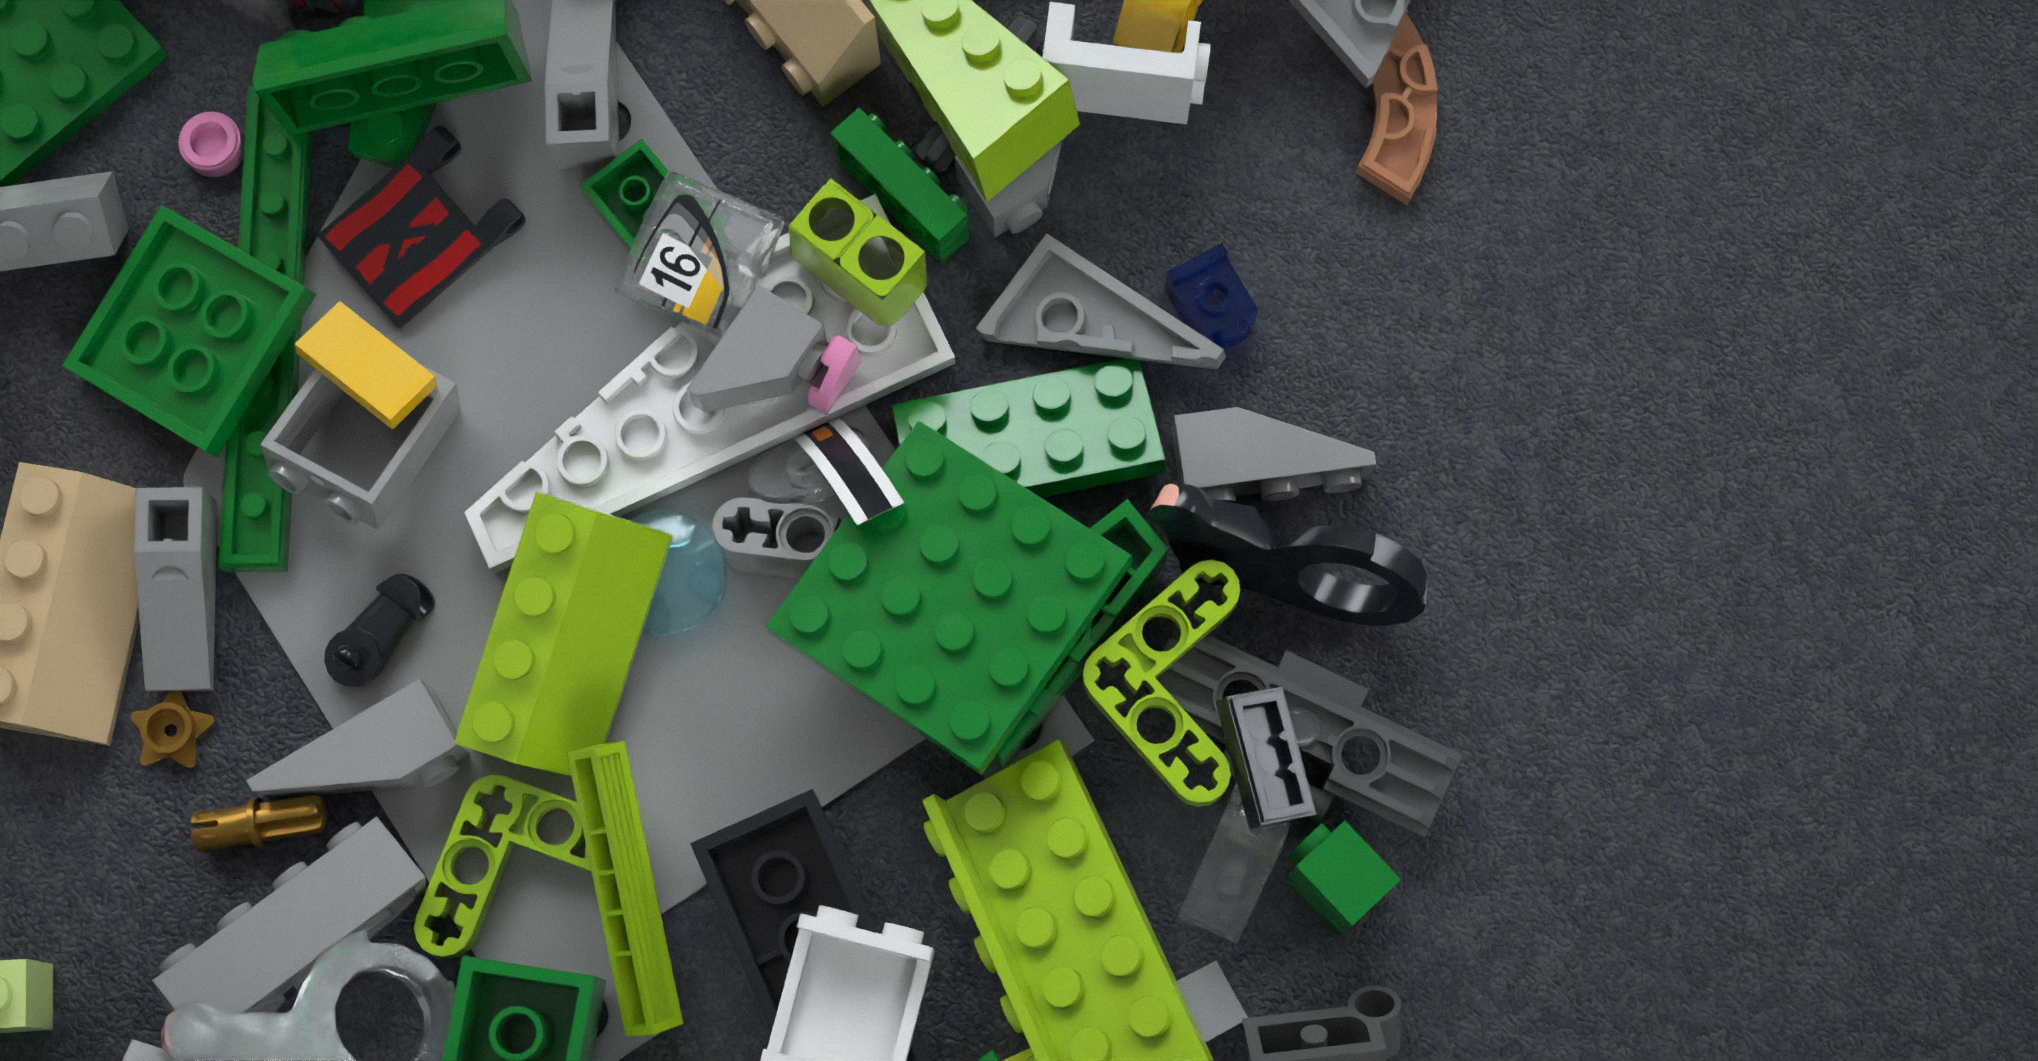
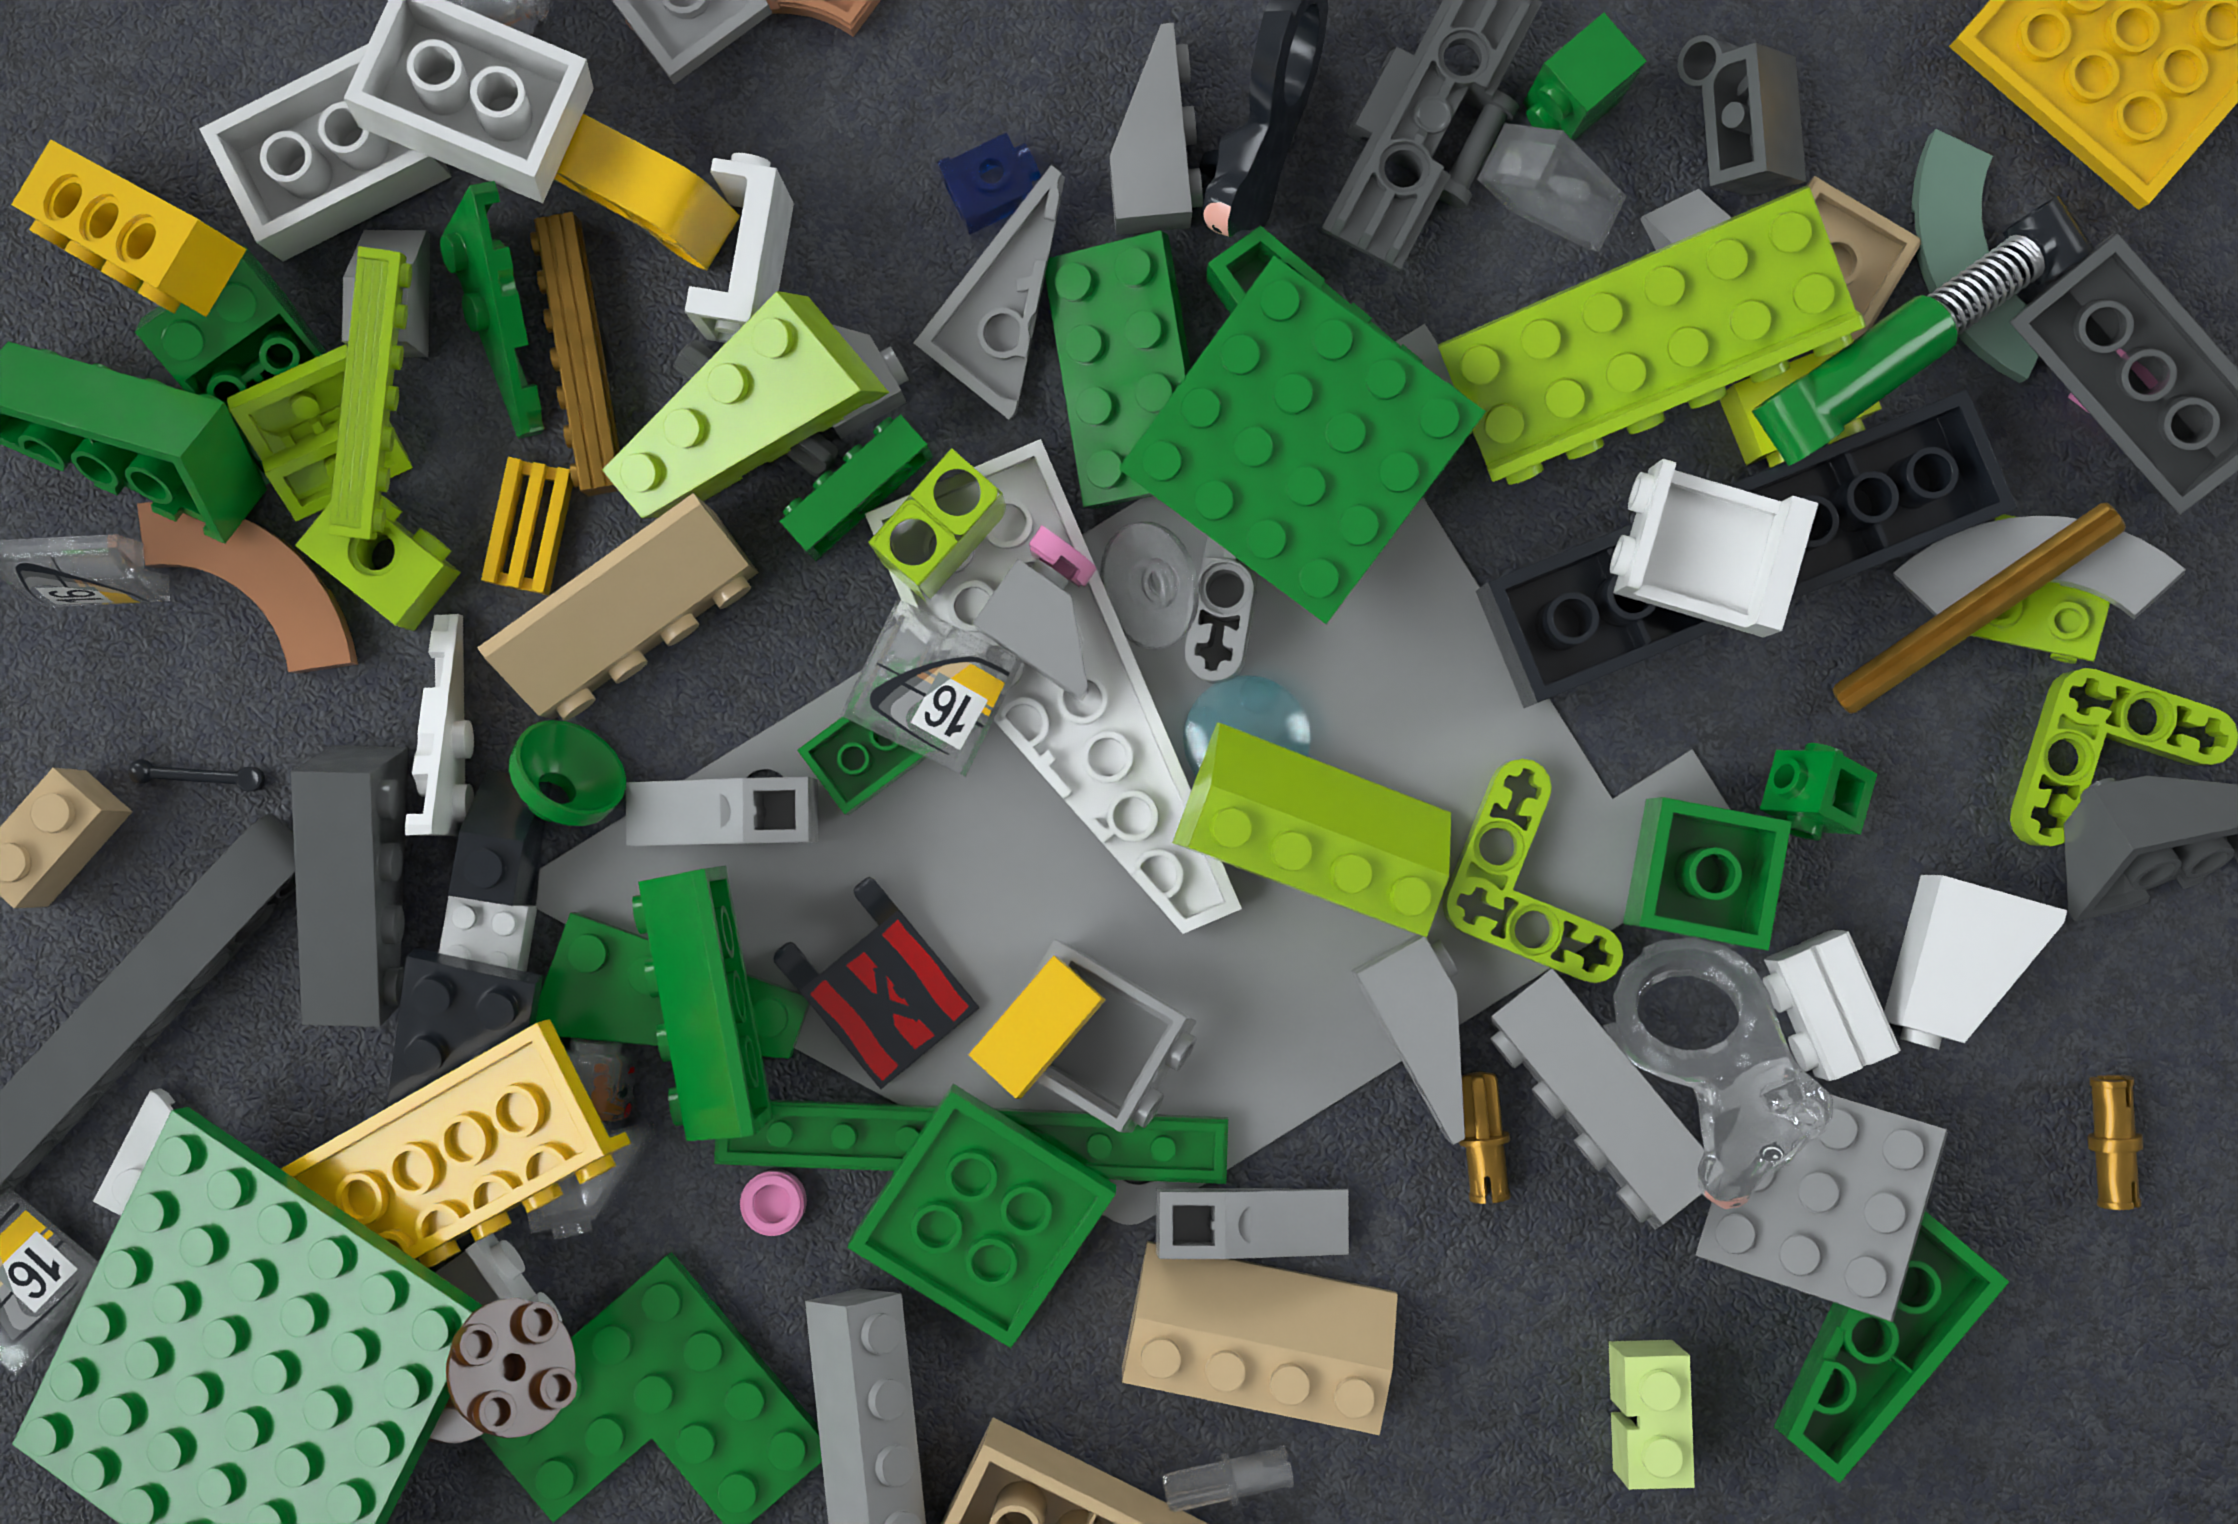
camera: 90 degrees left, 10 degrees up
(153, 729) = (1395, 1244): pearl gold plate -> none
(369, 641) = (1301, 1029): black piece -> none
(625, 889) = (1568, 772): lime piece -> none
(850, 470) = (1163, 540): sticker -> none
(1147, 665) = (1375, 254): lime beam -> none
(1265, 758) = (1471, 142): plate -> none

